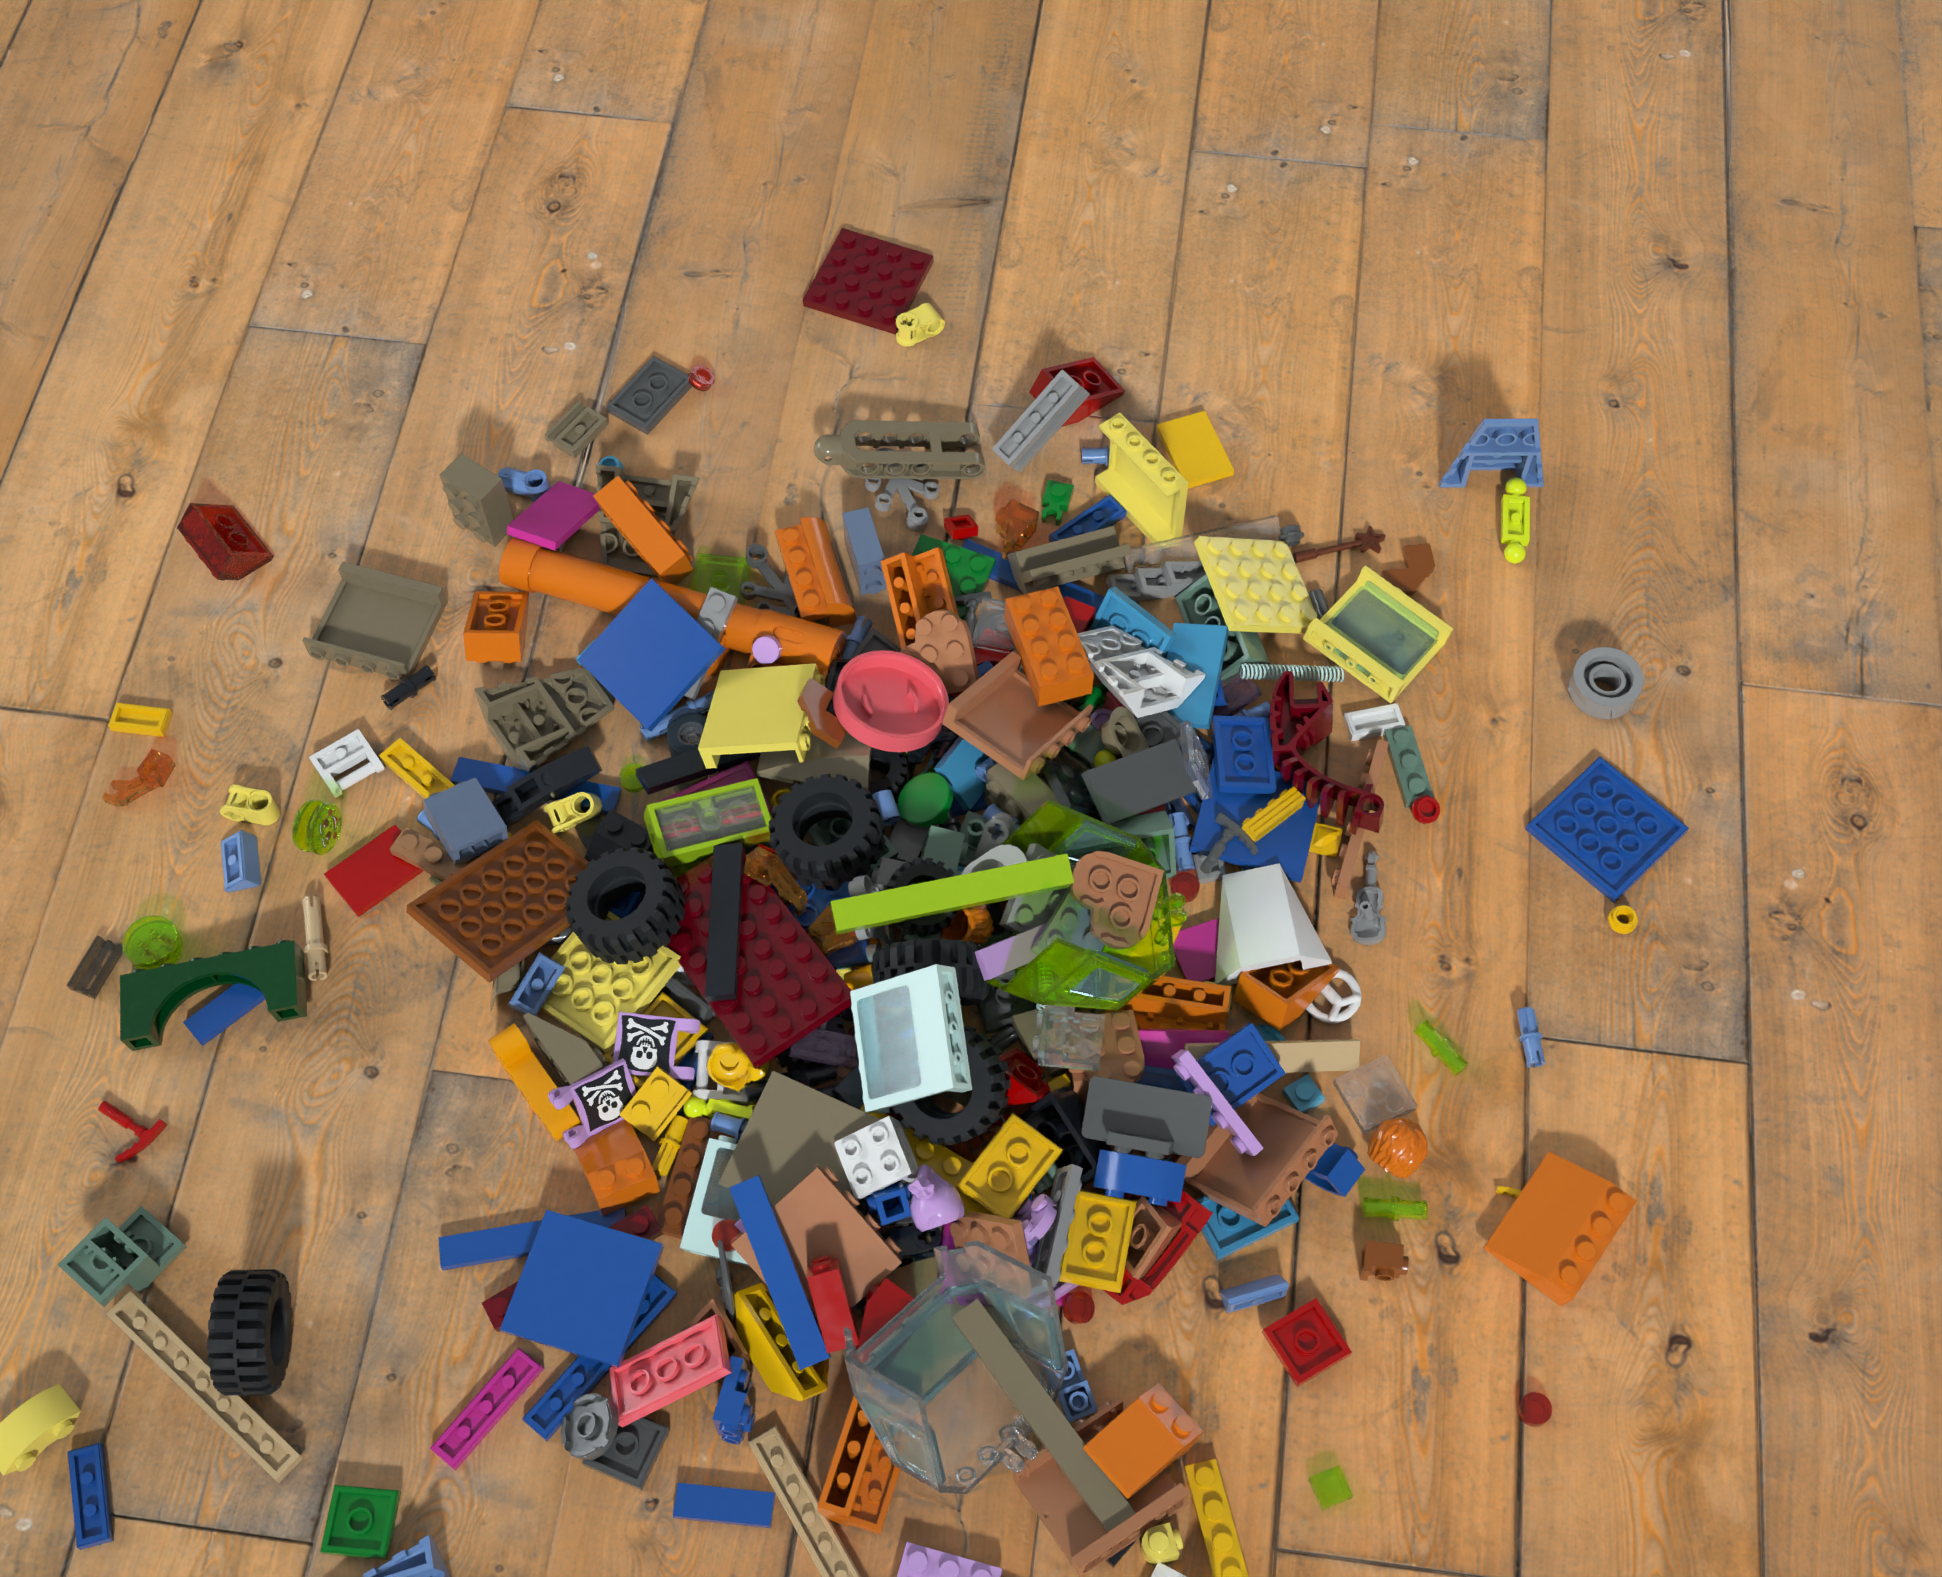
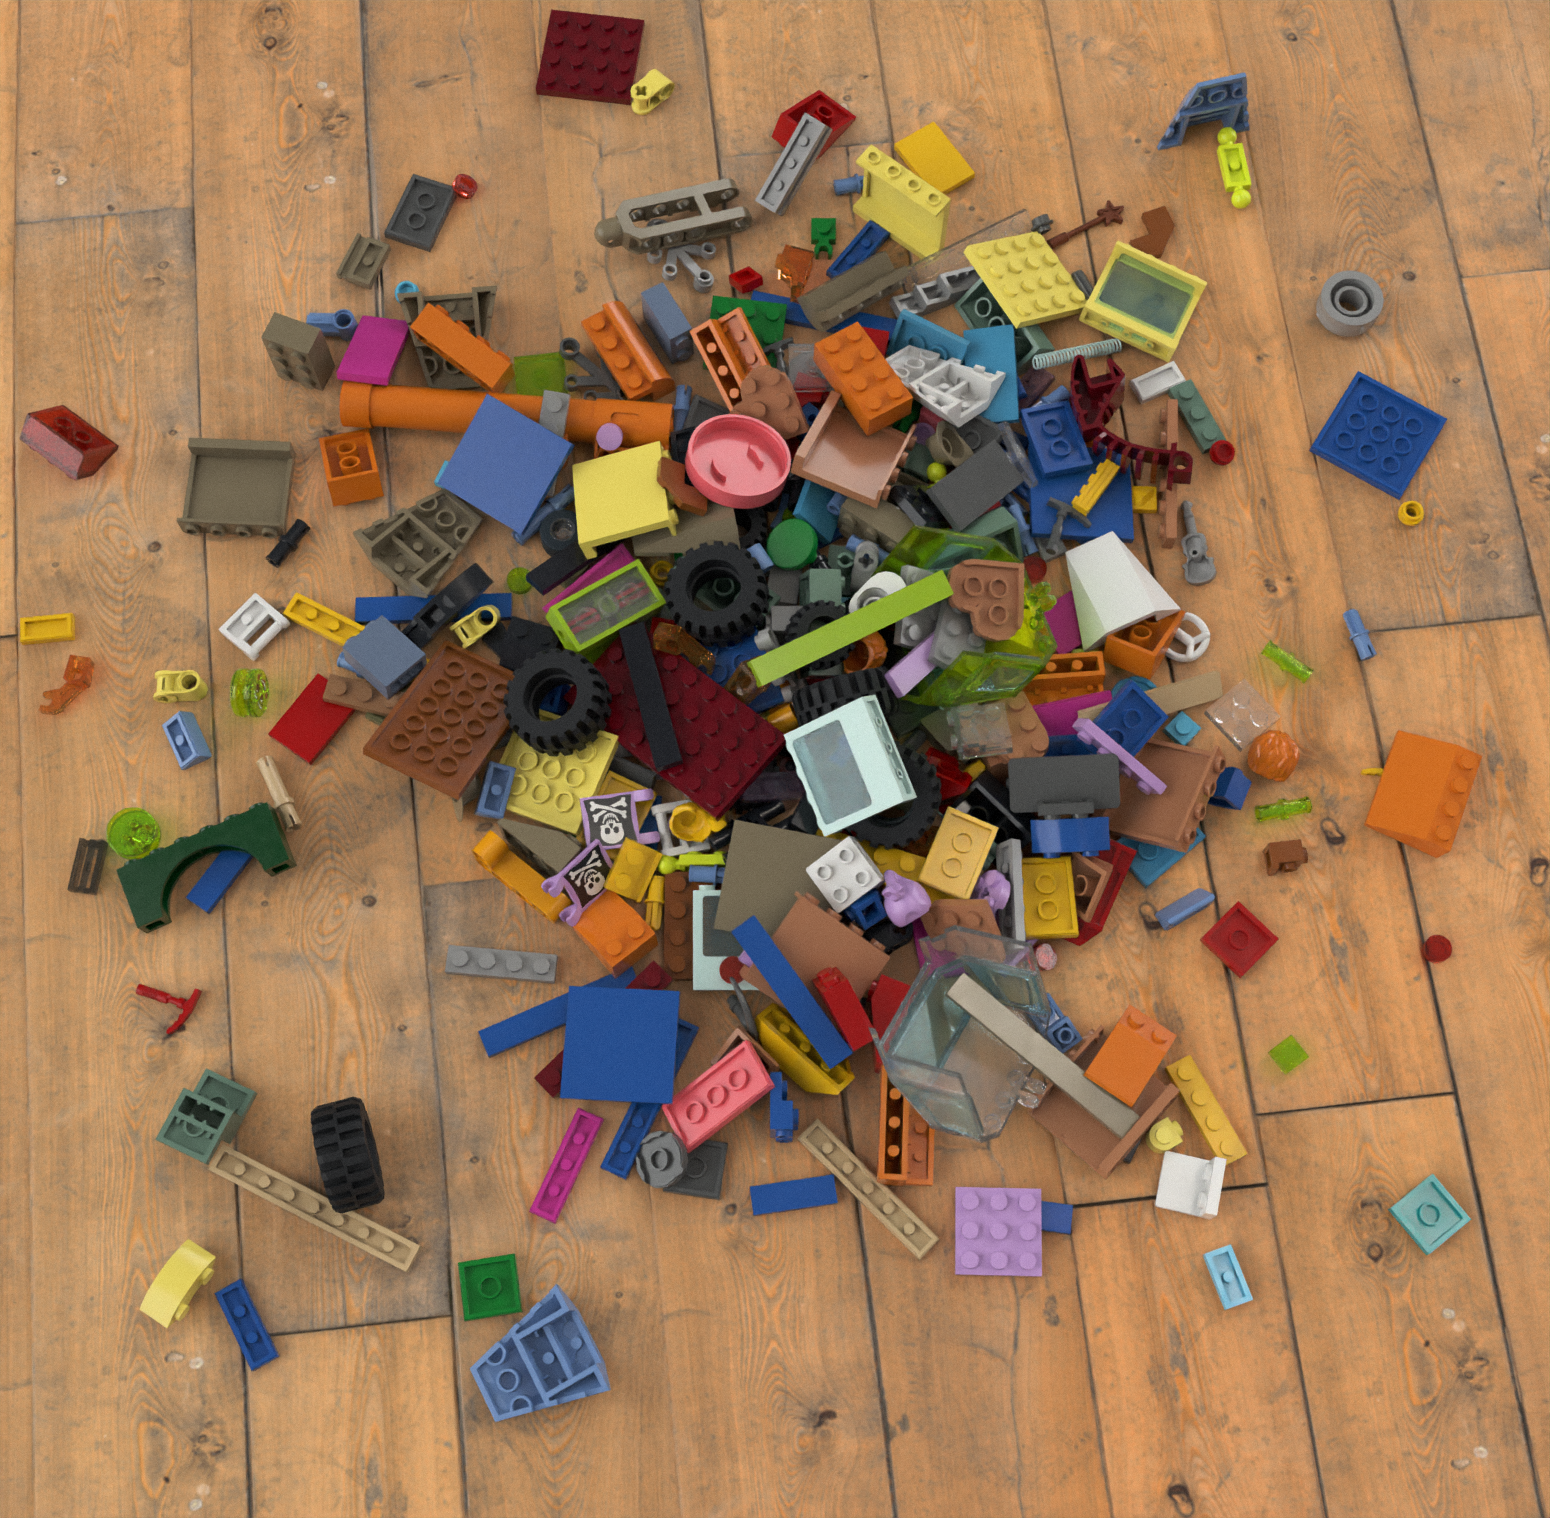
camera: 15 degrees left, 10 degrees up
(487, 1172) = (501, 964): none -> light grey plate

